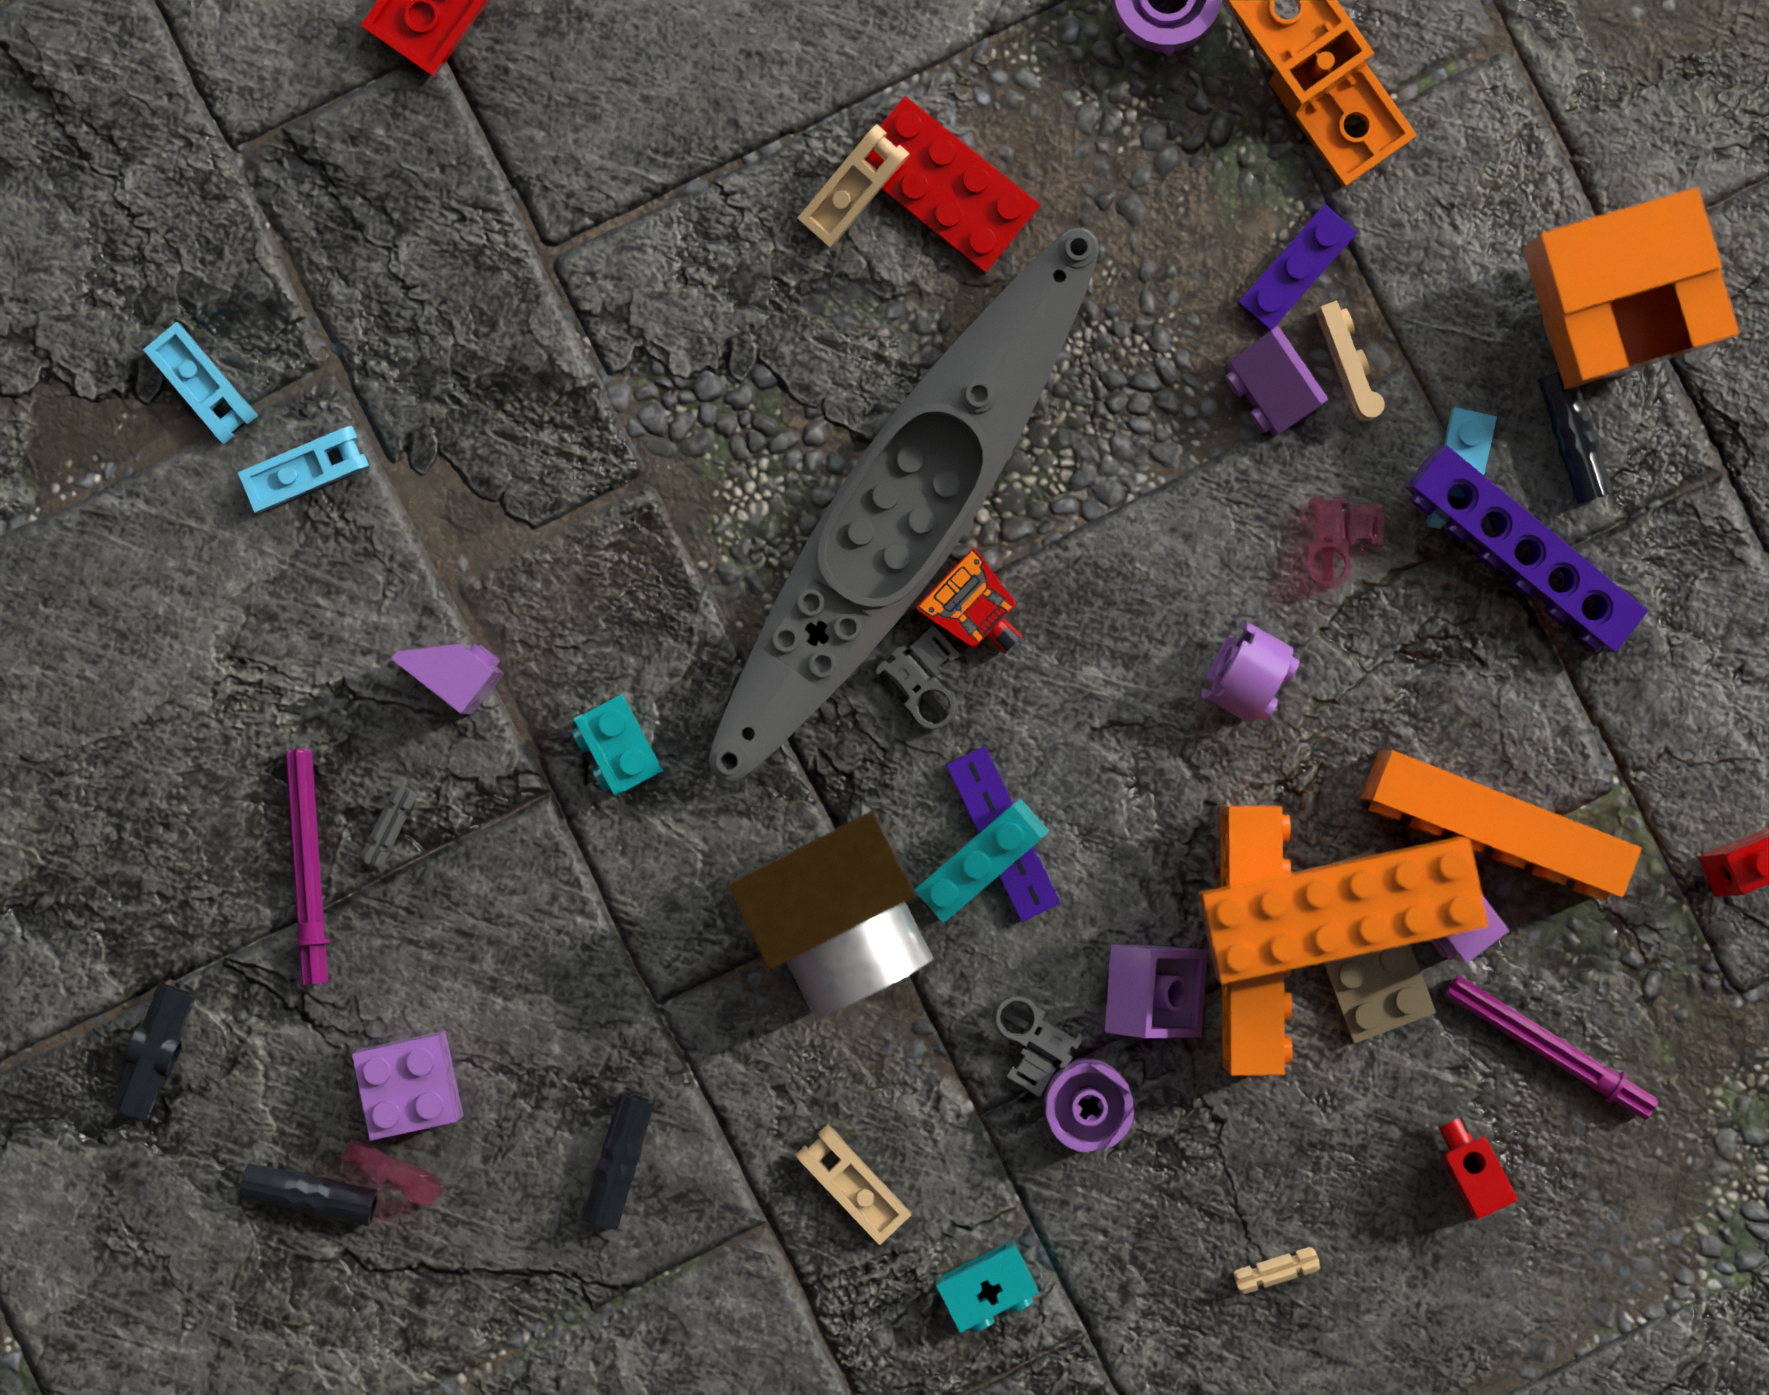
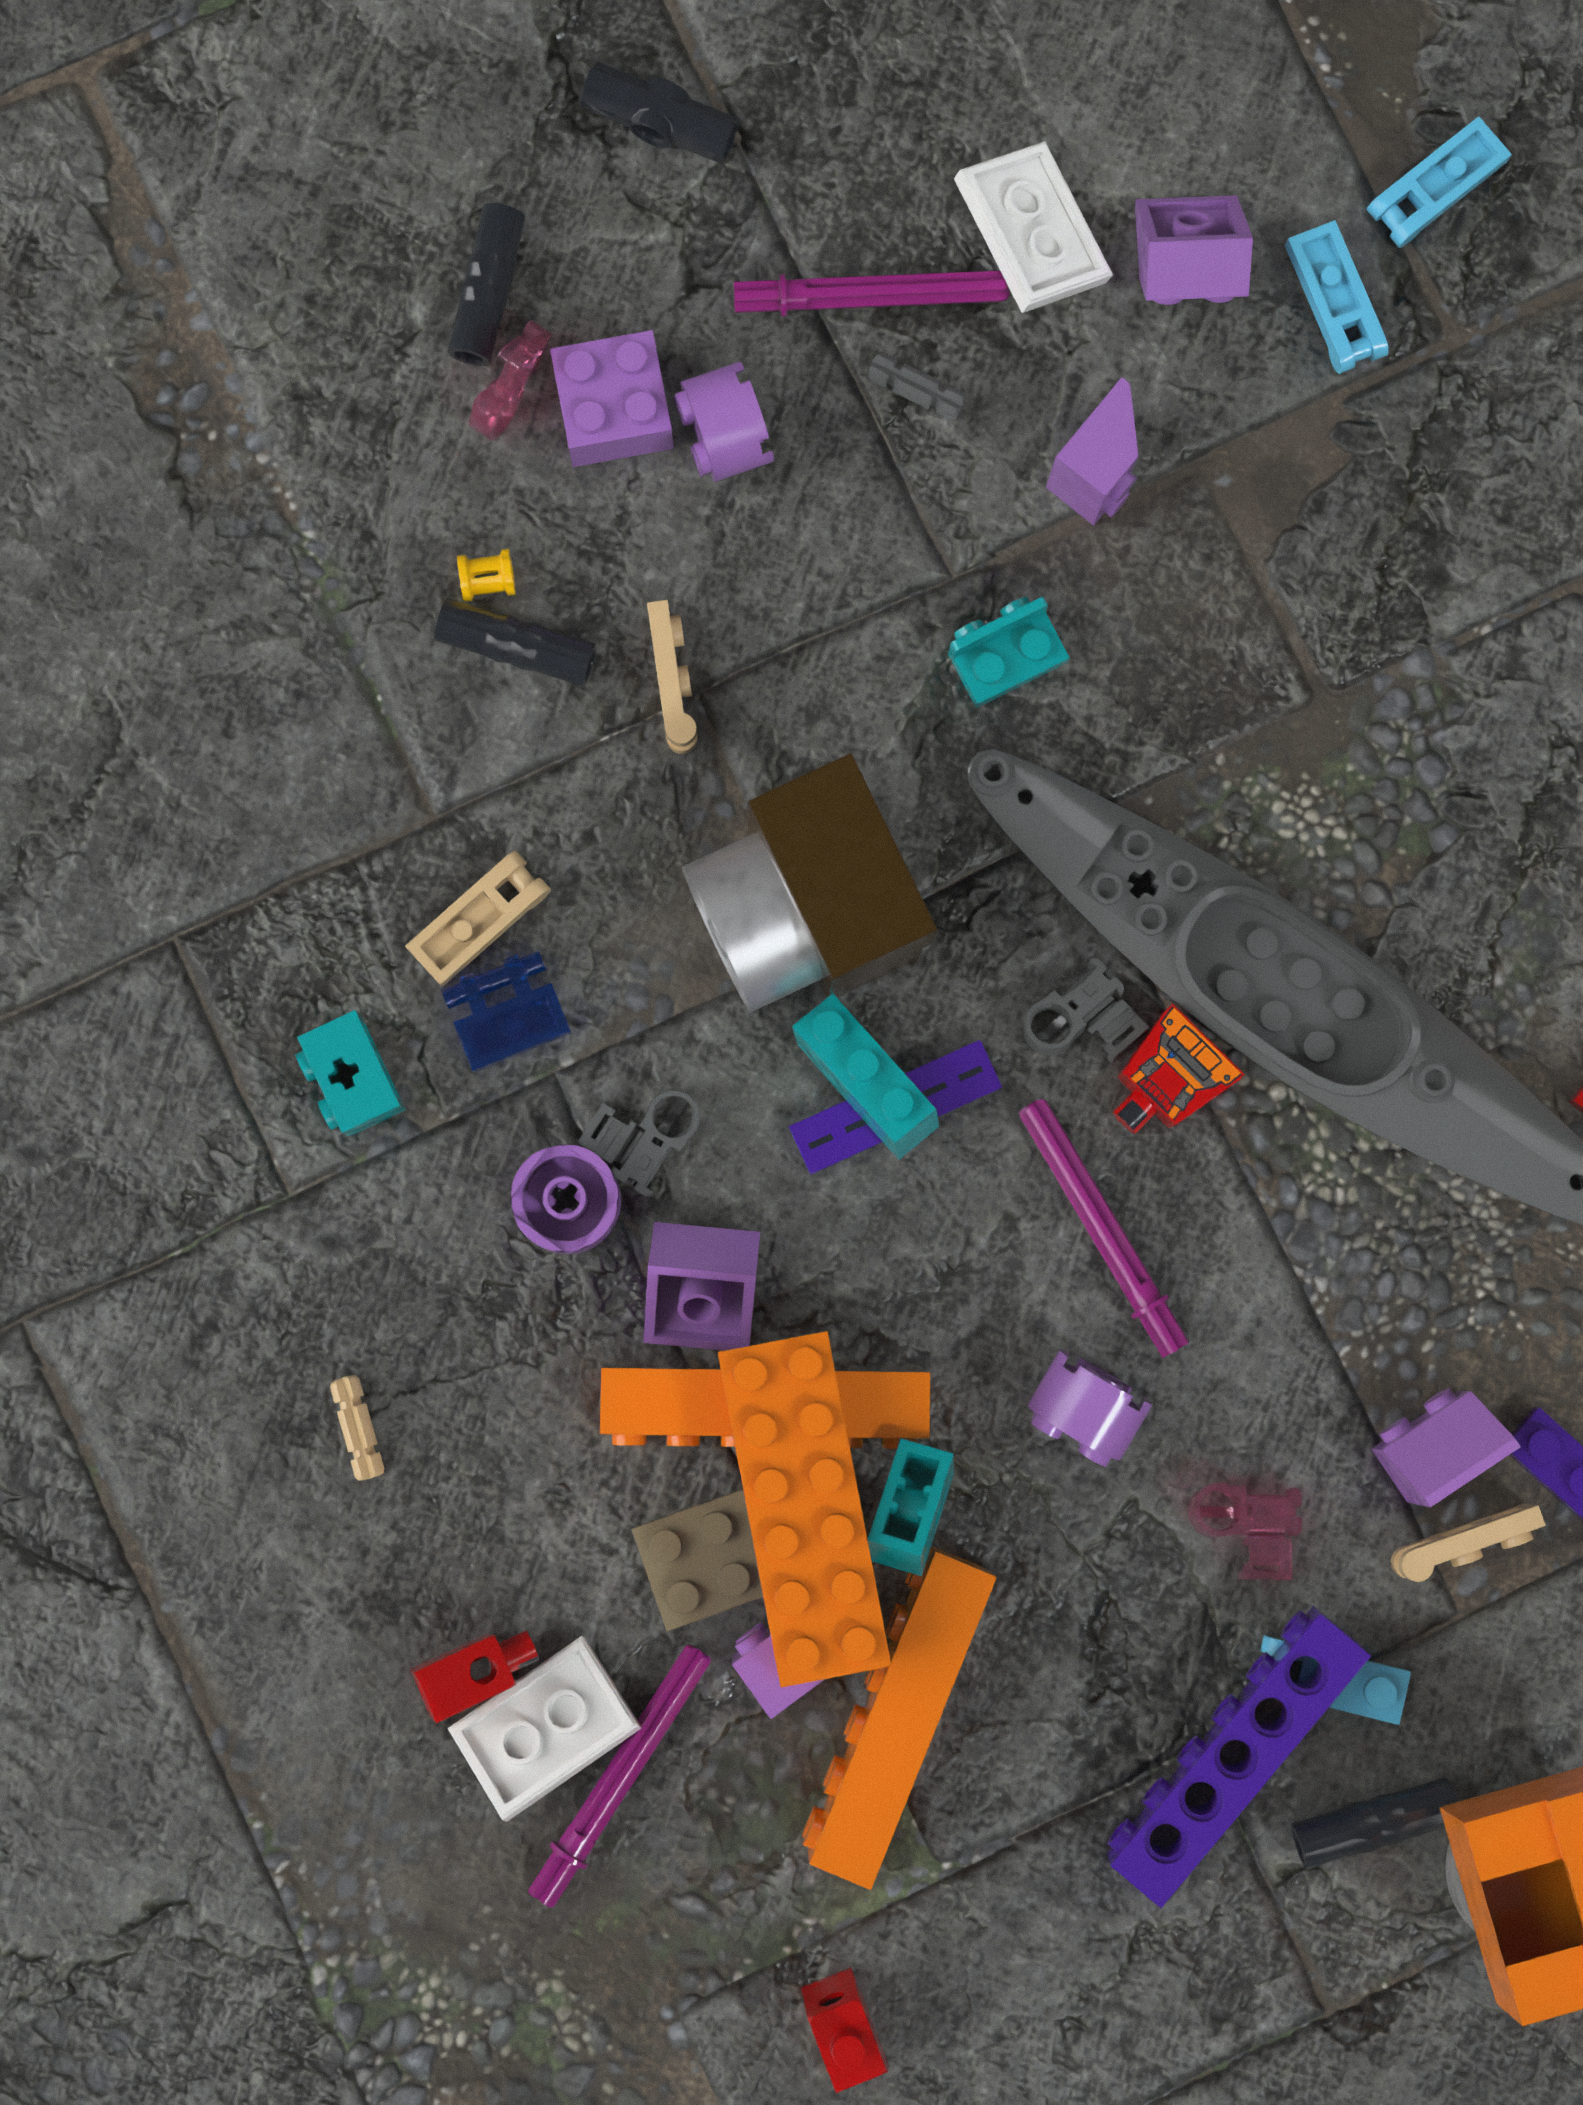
camera: 80 degrees right, 5 degrees down
(247, 729) = (1033, 226): none -> white tile
(263, 593) = (1193, 248): none -> medium lavender slope
(429, 990) = (724, 422): none -> medium lavender brick
(552, 1175) = (484, 565): none -> yellow bush
(648, 1028) = (672, 679): none -> tan plate
(943, 1153) = (510, 1026): none -> clear blue plate
(1099, 660) = (1103, 1228): none -> magenta axle
(1338, 821) = (911, 1507): none -> teal brick
(1516, 1110) = (544, 1728): none -> white tile

